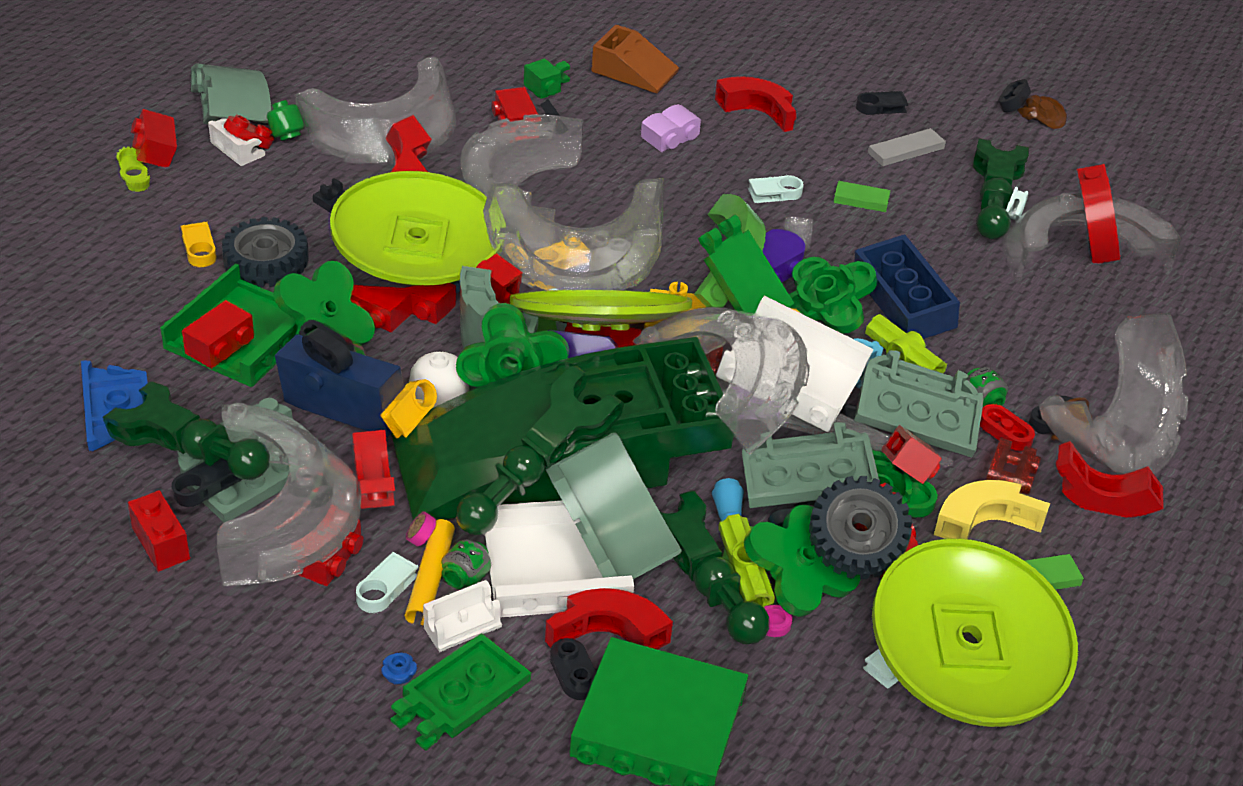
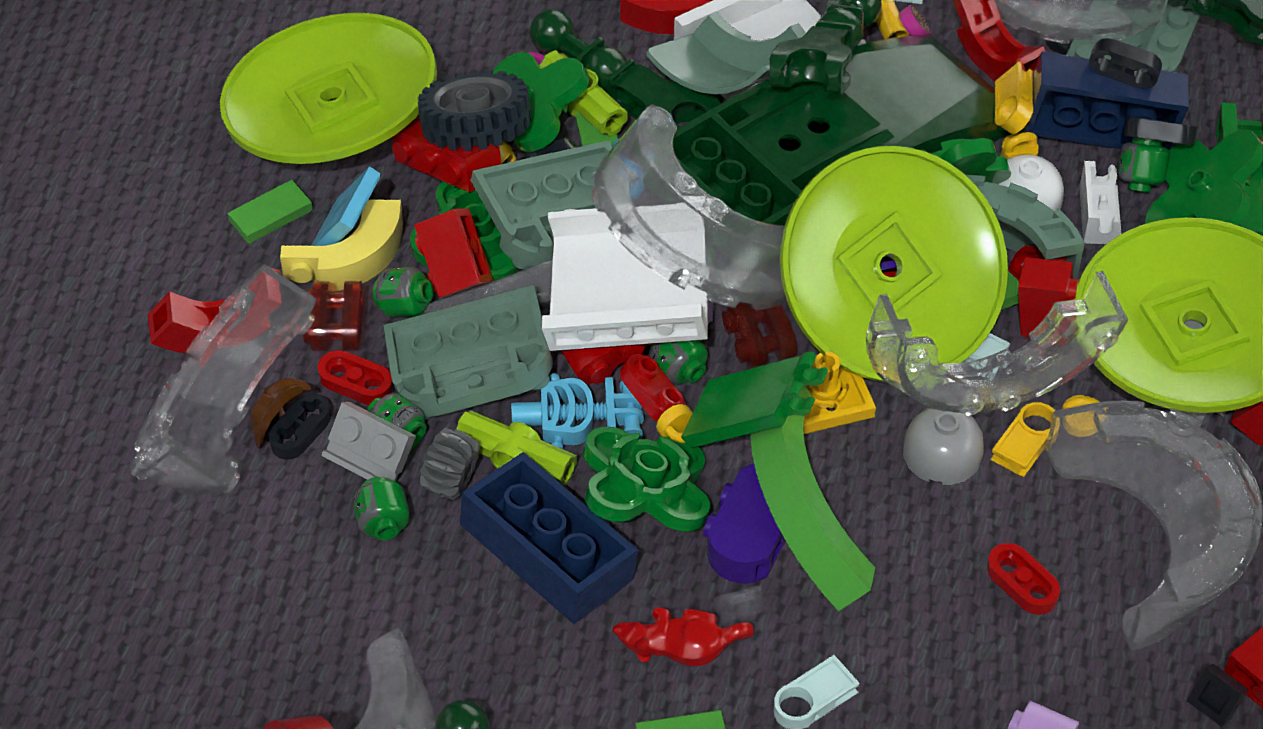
camera: 160 degrees right, 10 degrees up
(403, 346) = (1099, 205): none -> white hinge
(618, 191) = (1026, 578): none -> red plate
(838, 226) = (687, 640): none -> red animal
(957, 341) = (449, 463): none -> dark grey gear
(957, 462) = (402, 292): none -> green head
(989, 515) = (347, 209): none -> medium azure tile
(1010, 342) = (380, 507): none -> green head
(1018, 378) = (367, 443): none -> light grey plate

